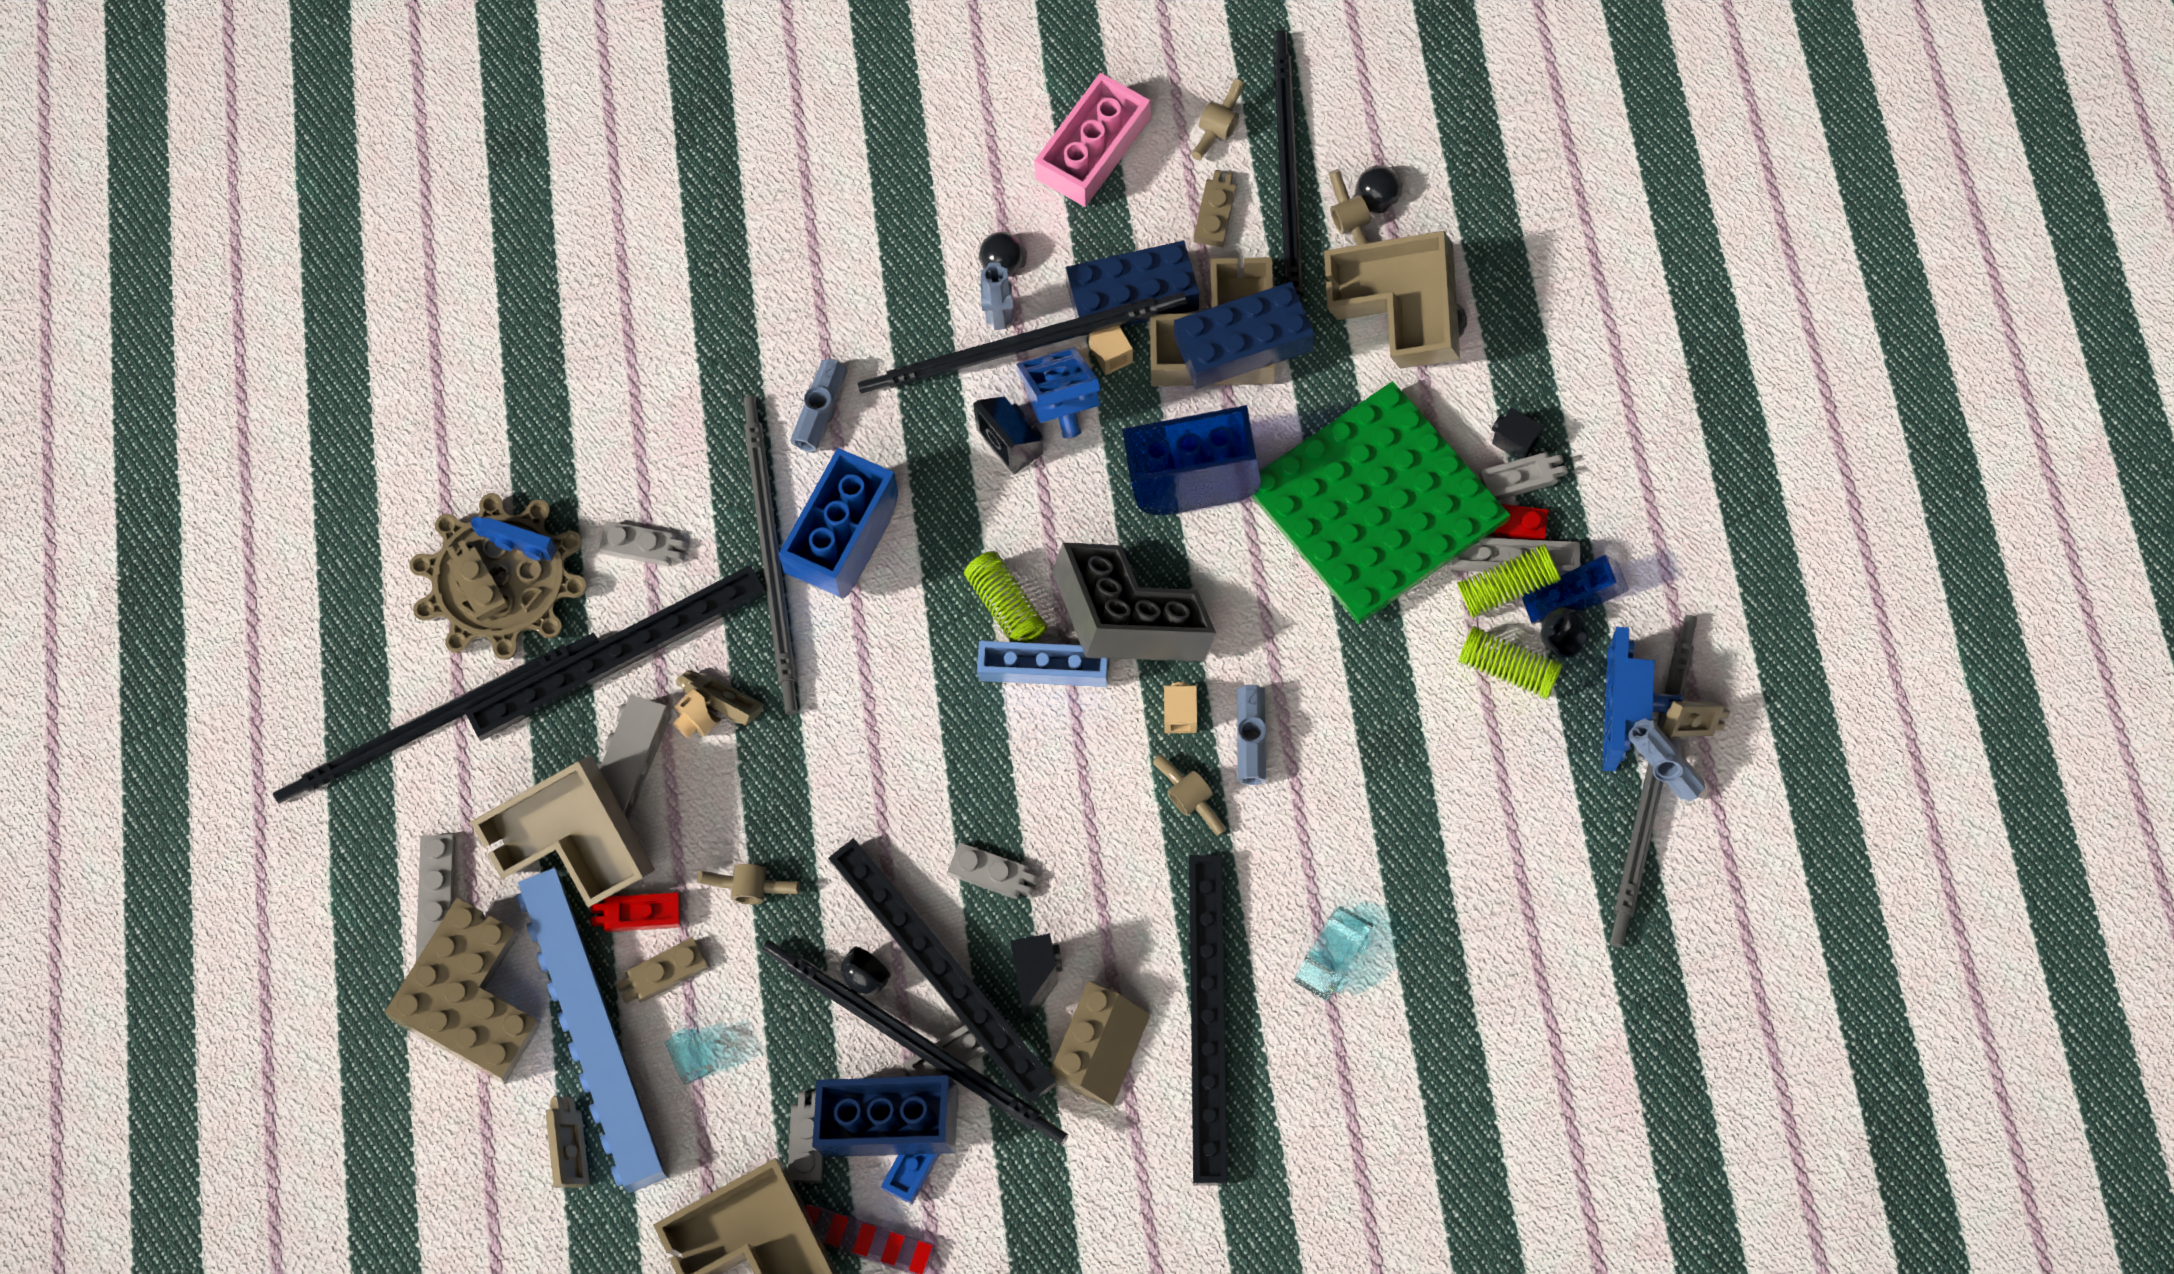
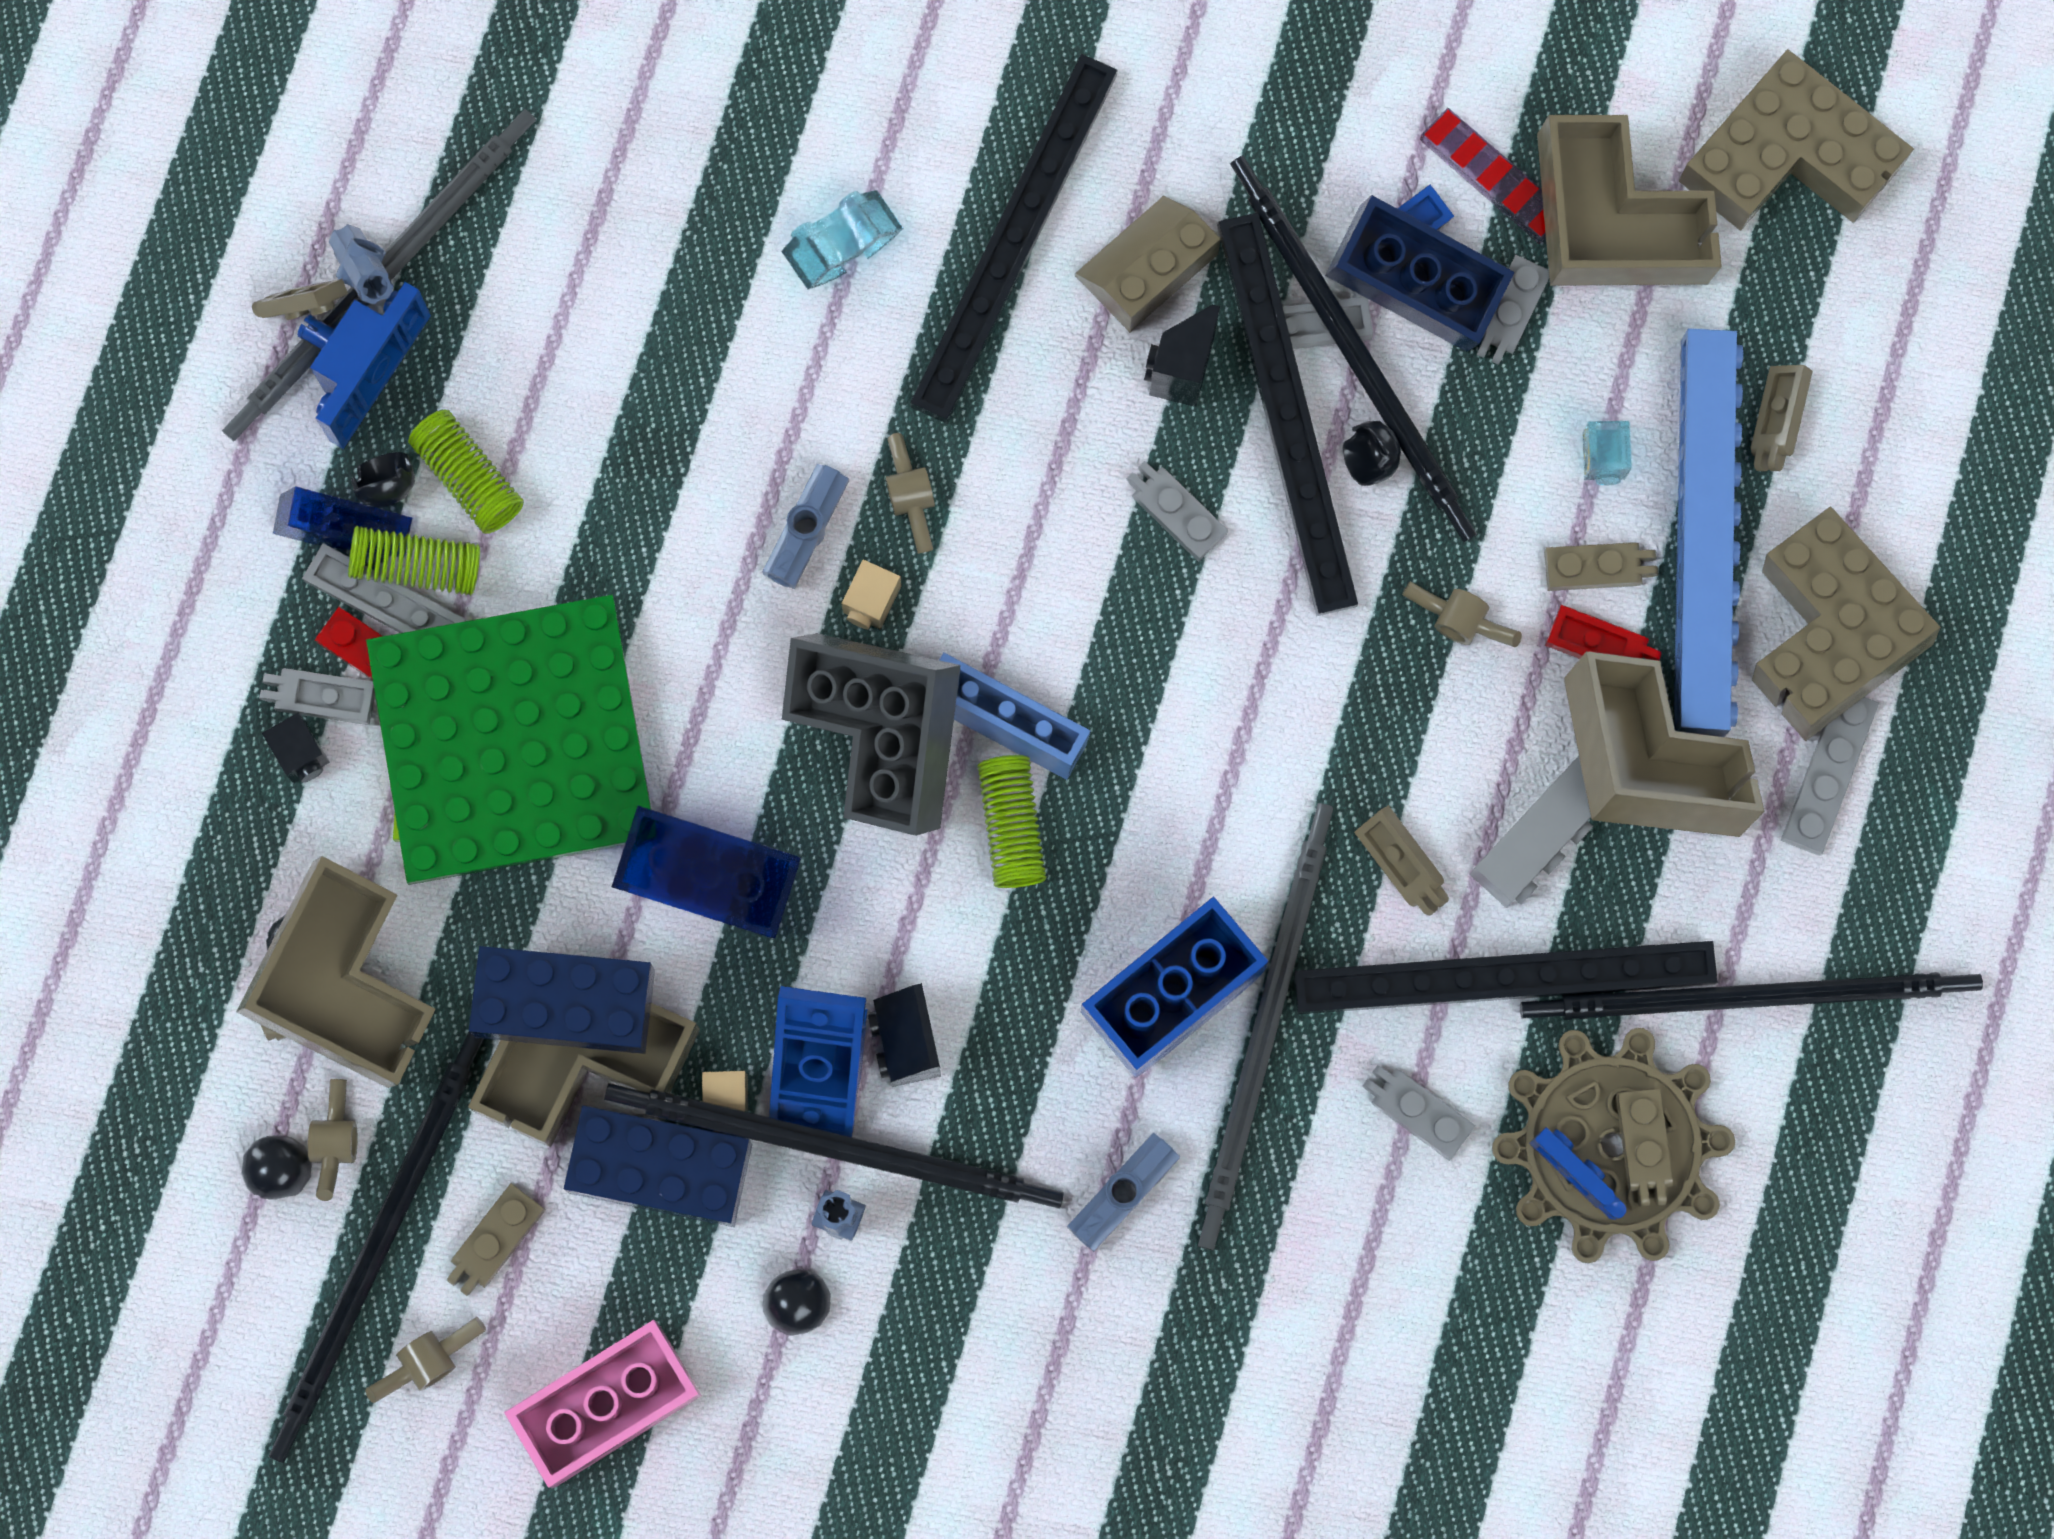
camera: 160 degrees left, 10 degrees up
(694, 715) = (1444, 844): tan piece -> none

